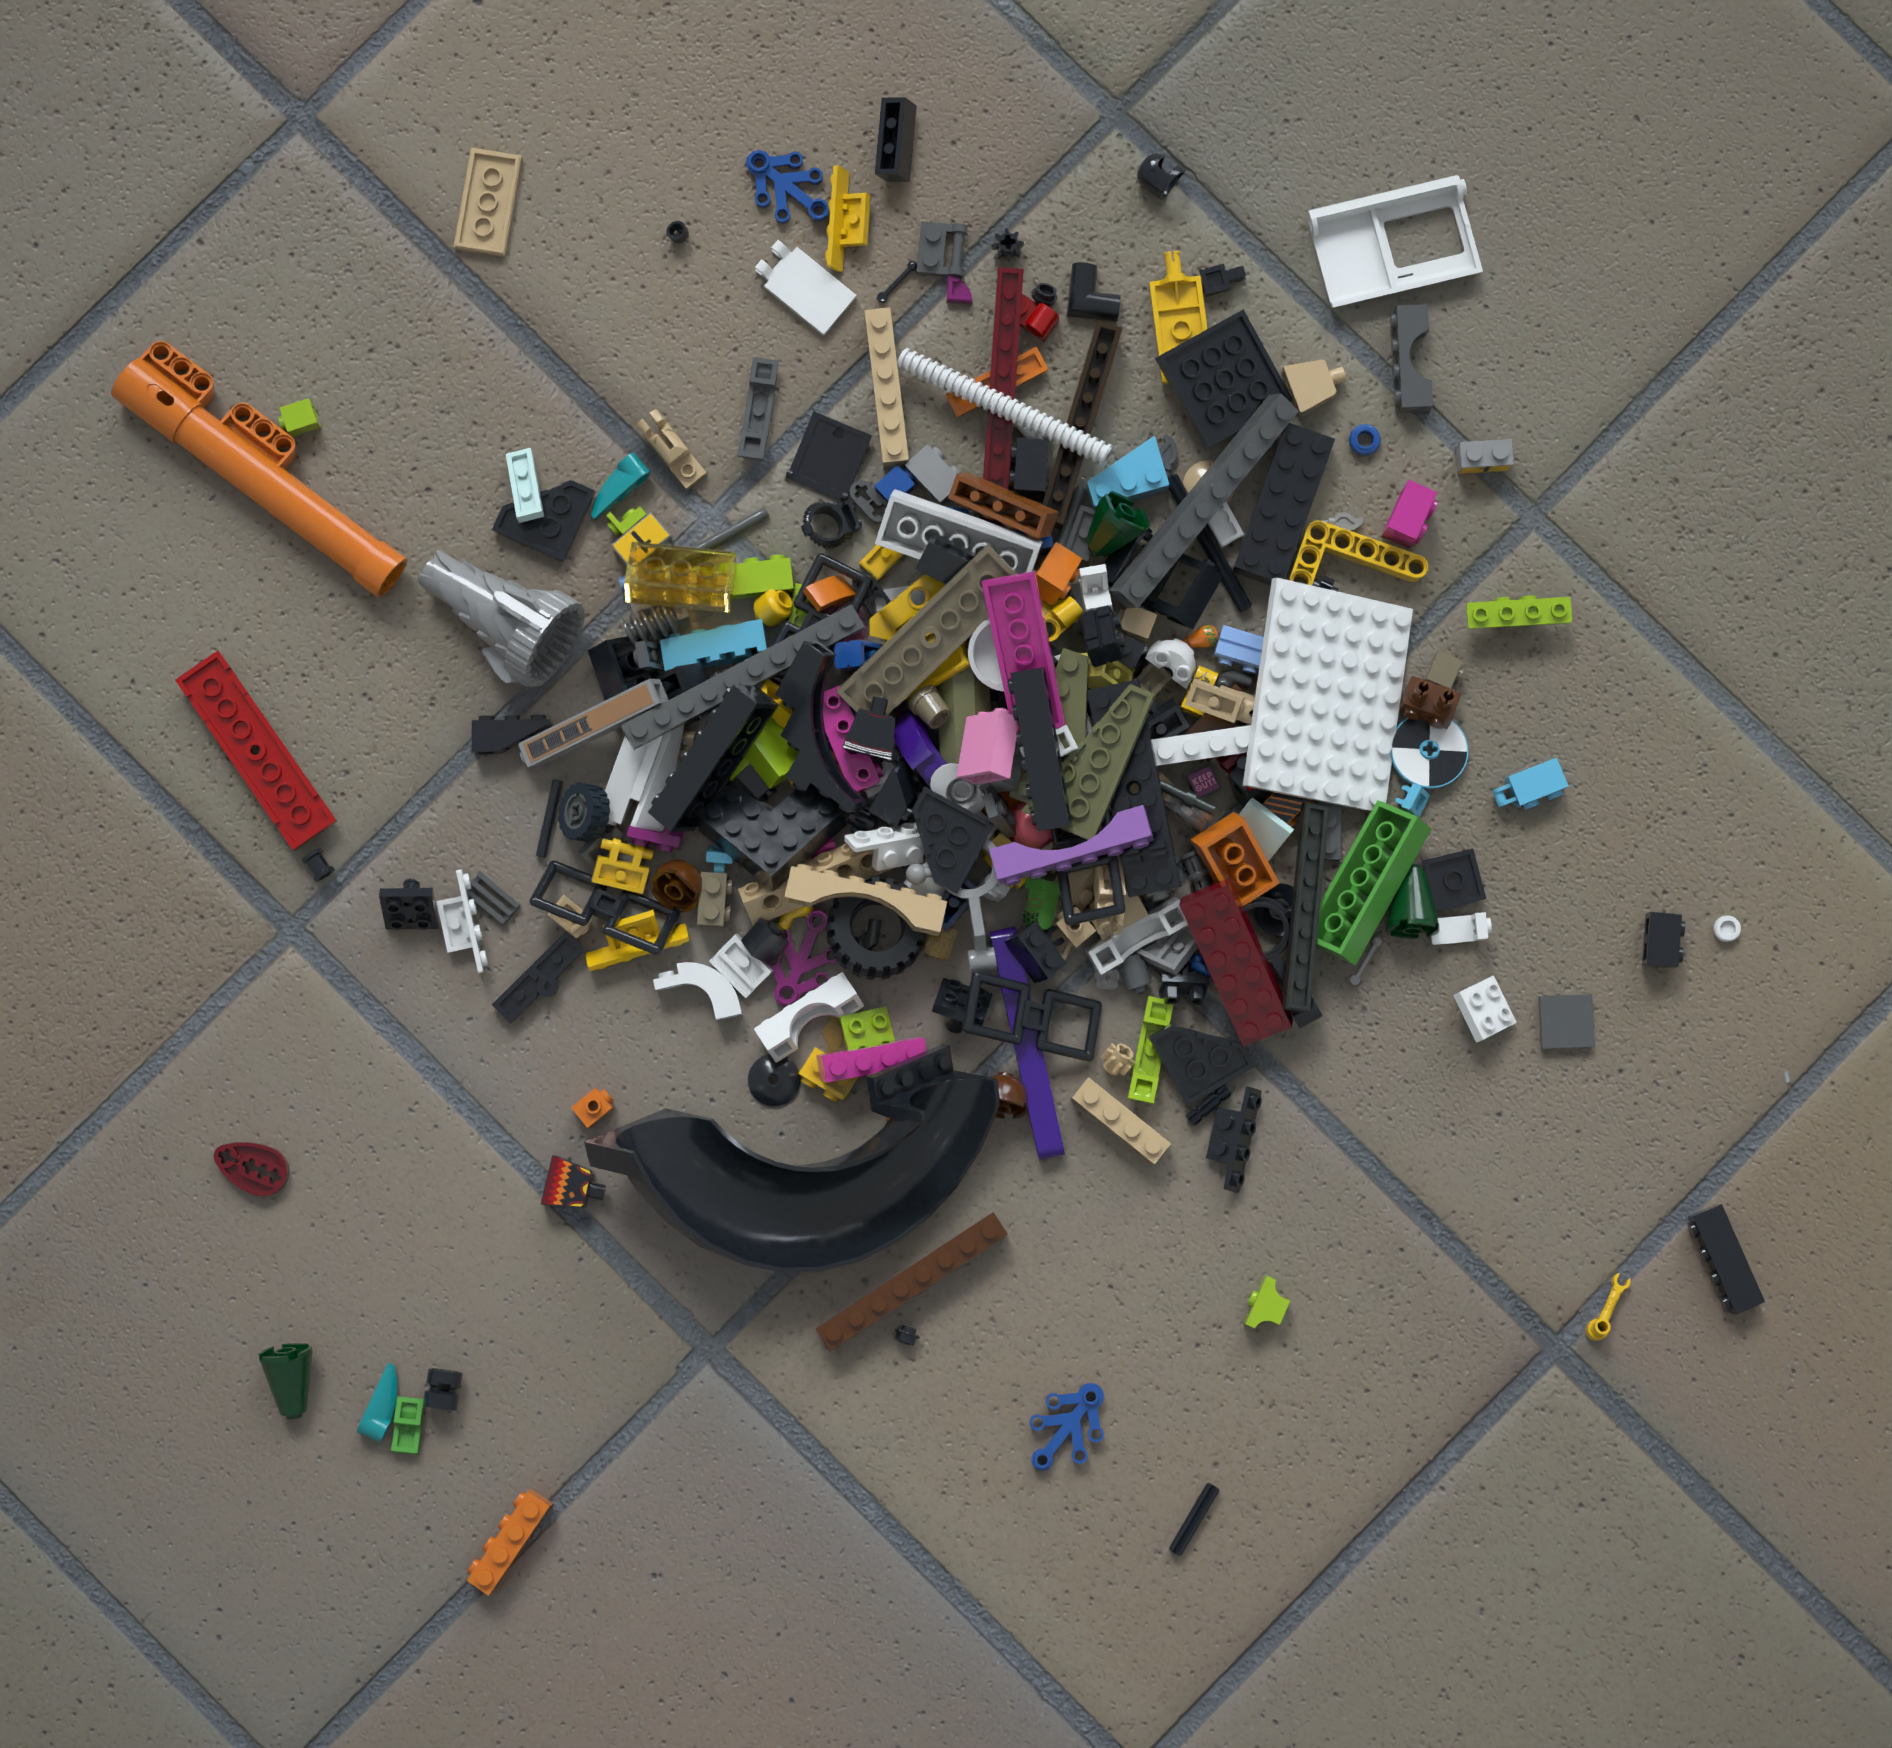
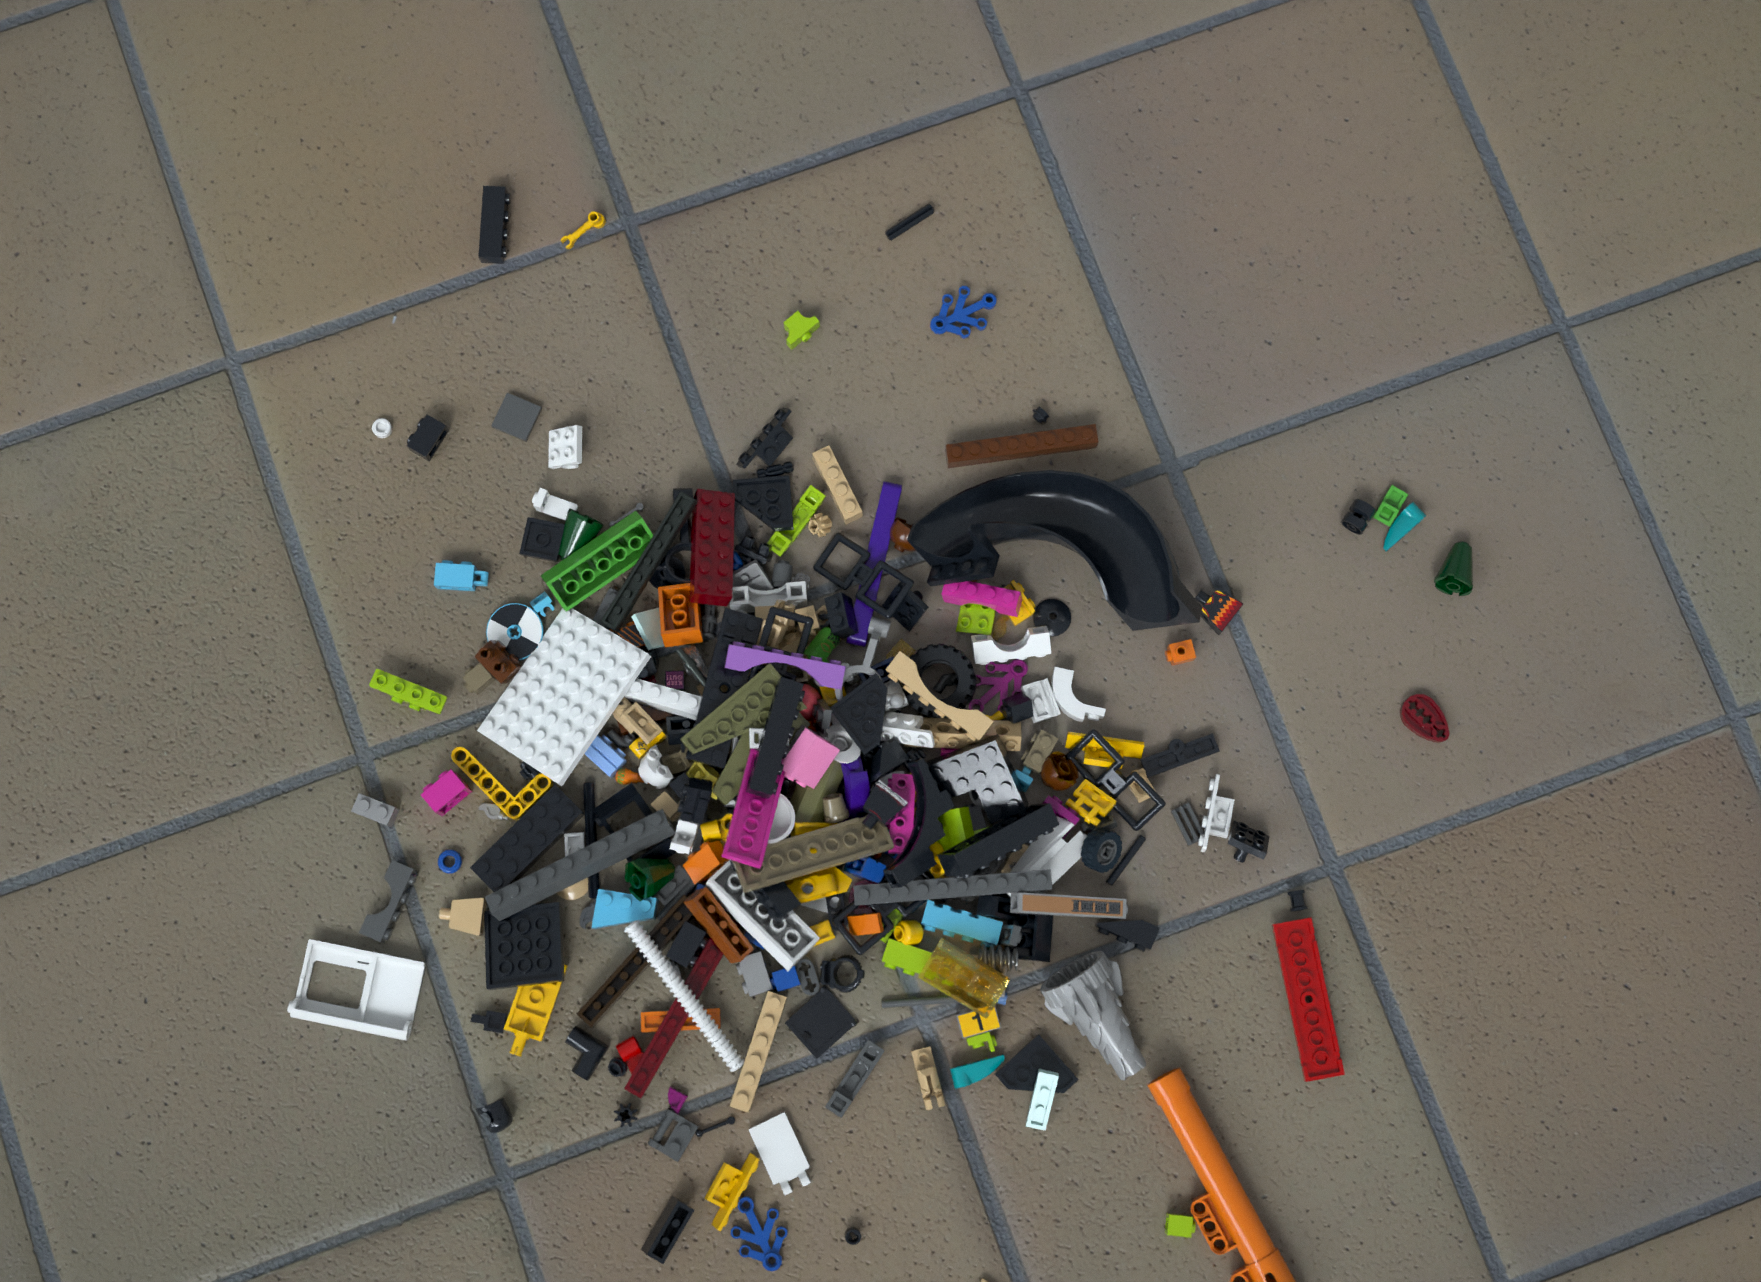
camera: 155 degrees left, 5 degrees down
(509, 1542) = (1355, 402): orange brick -> none

